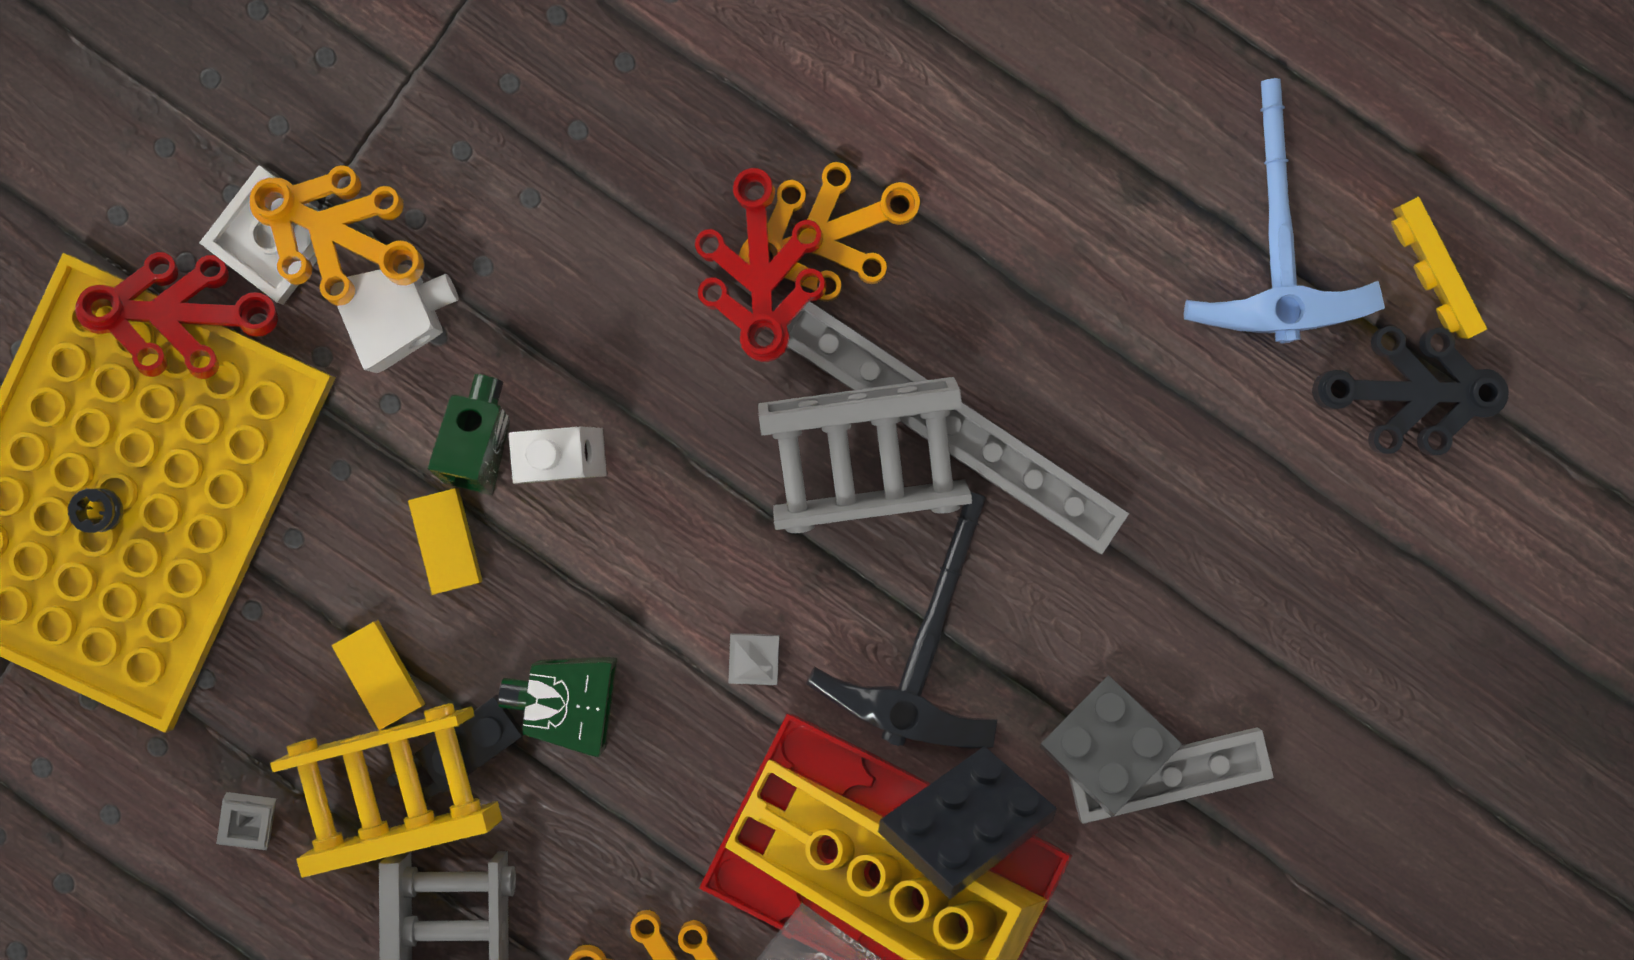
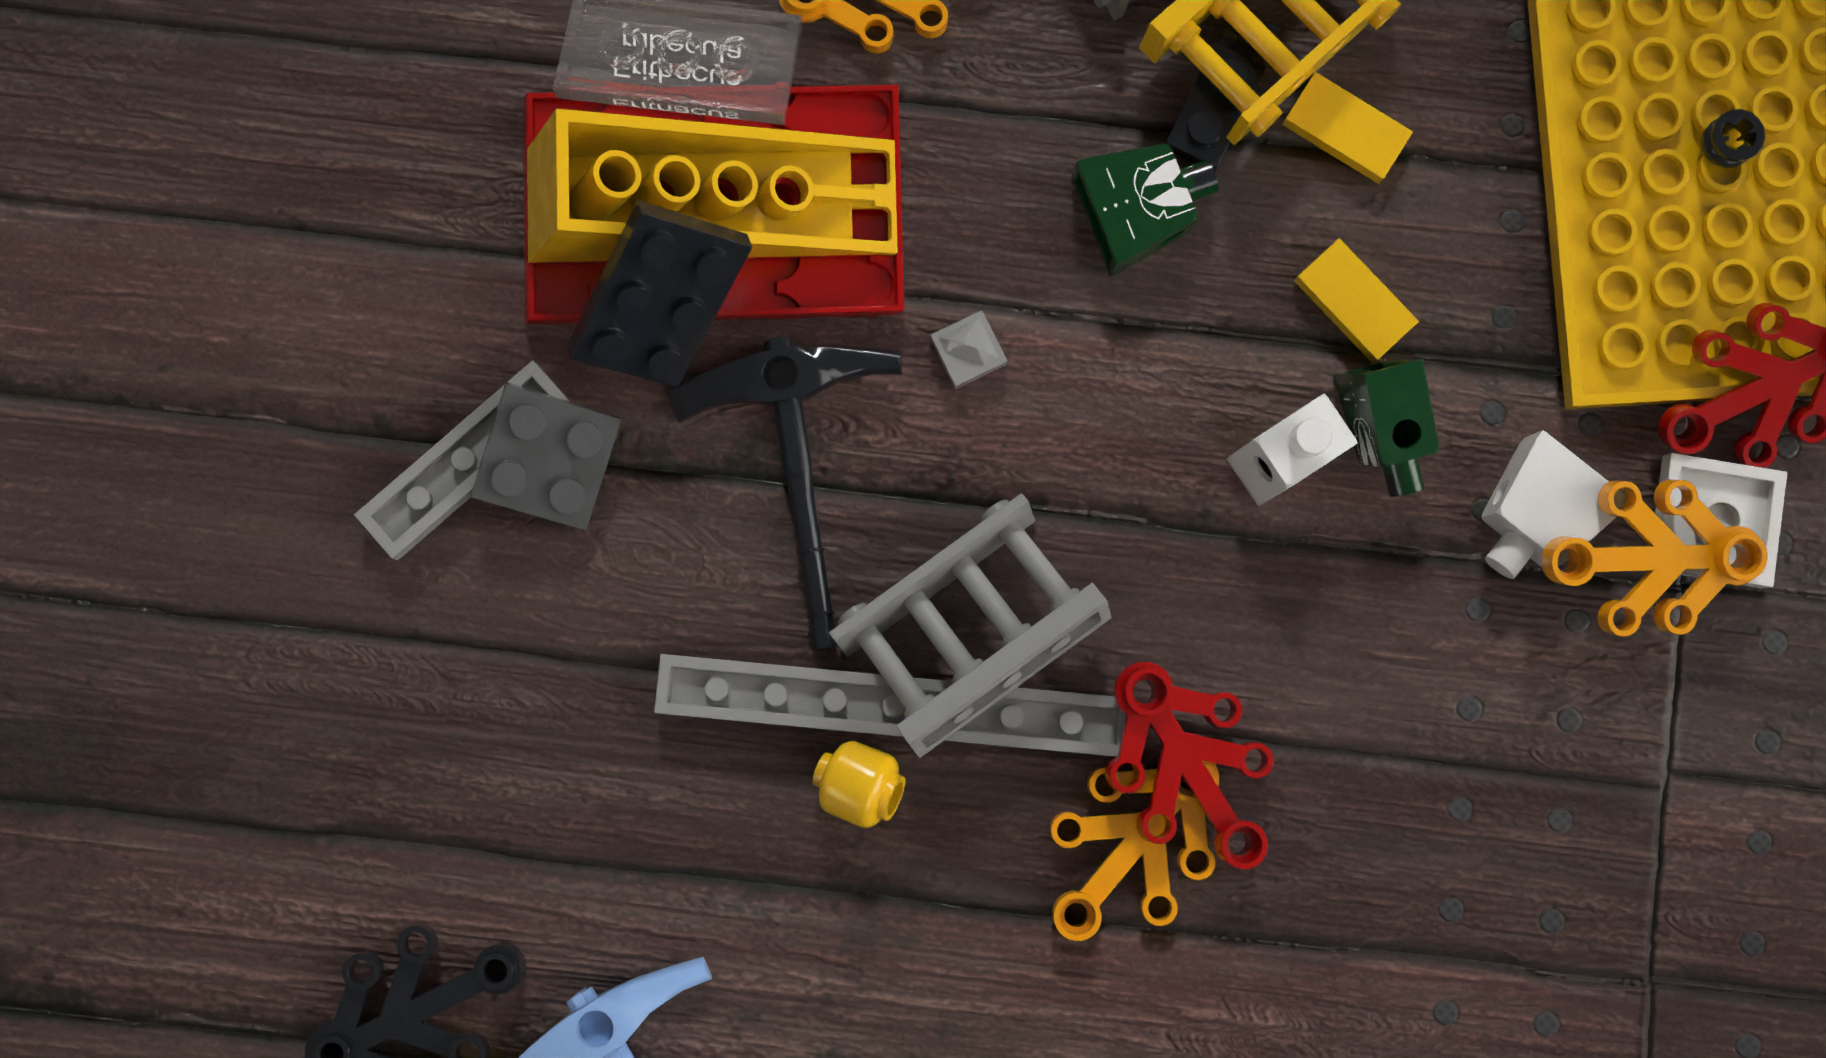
camera: 150 degrees right, 5 degrees down
(1007, 381) = (859, 784): none -> yellow head

